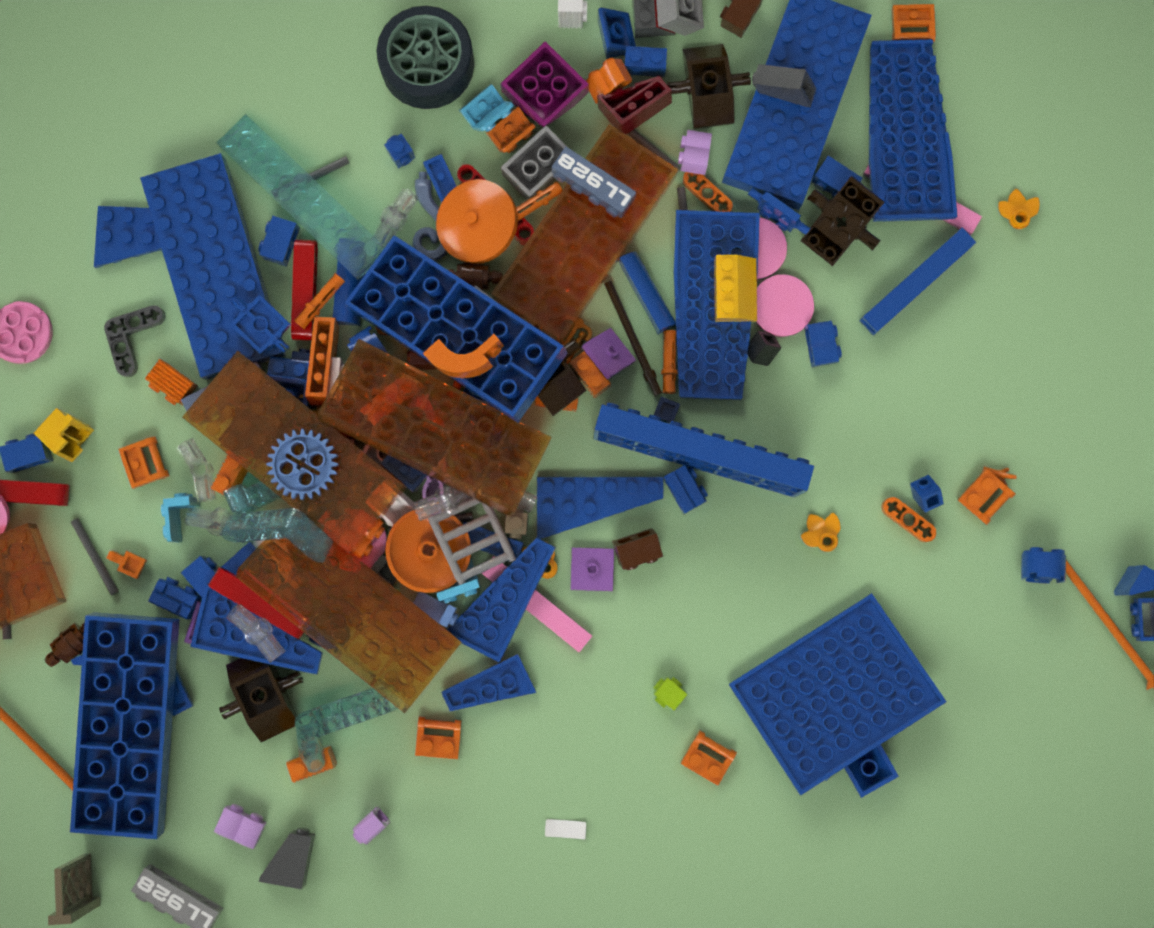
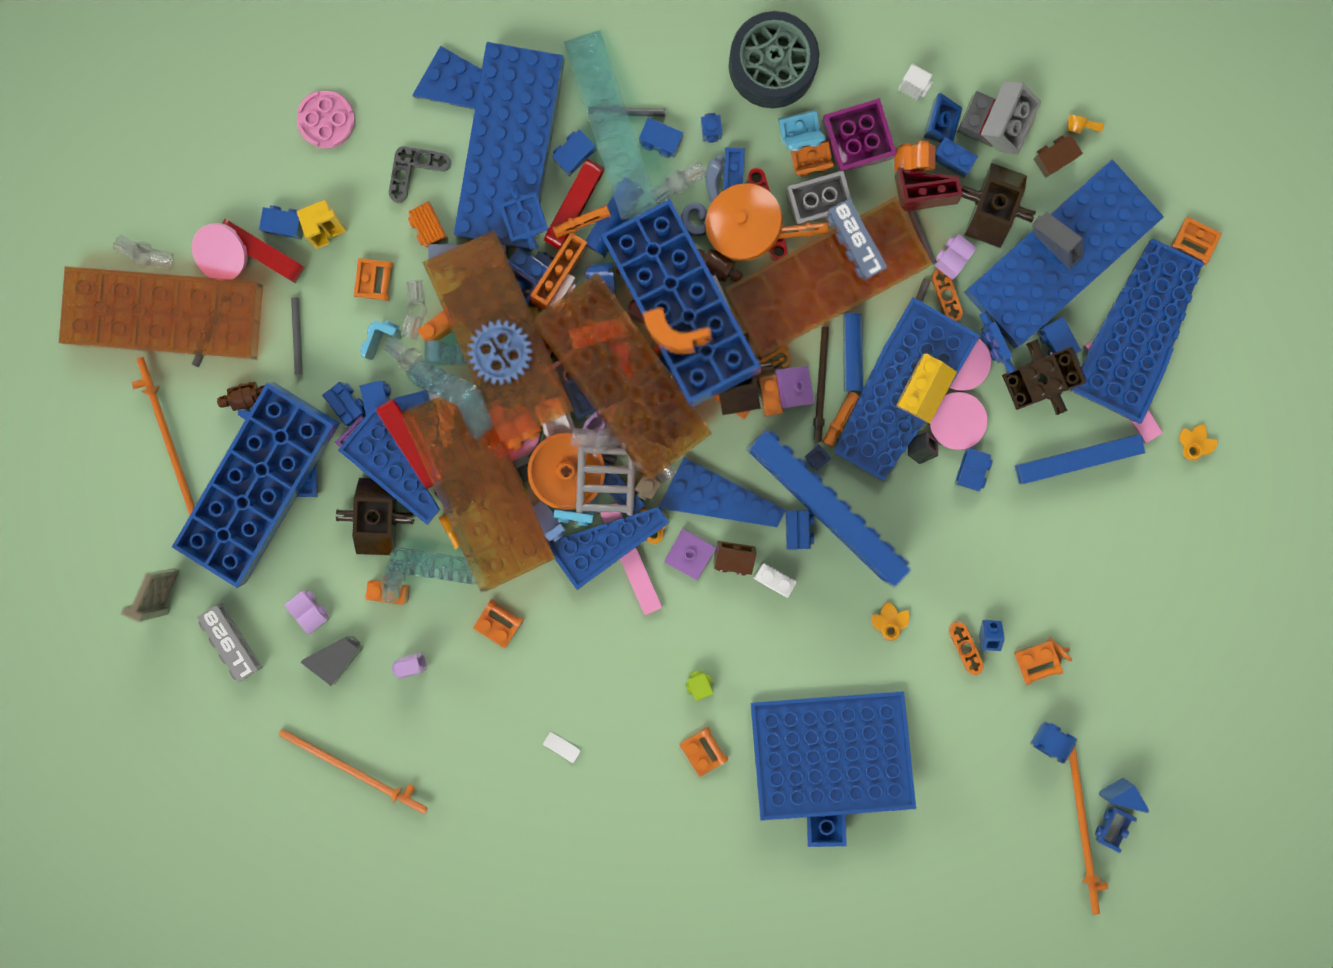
camera: 25 degrees right, 5 degrees up
(129, 563) = (321, 356): orange plate -> none
(256, 632) = (396, 467): clear piece -> none
(339, 667) = (448, 529): none -> light orange bar
(356, 185) = (660, 138): none -> blue brick
(494, 684) = (565, 605): blue wing -> none
(688, 550) = (774, 579): none -> white brick

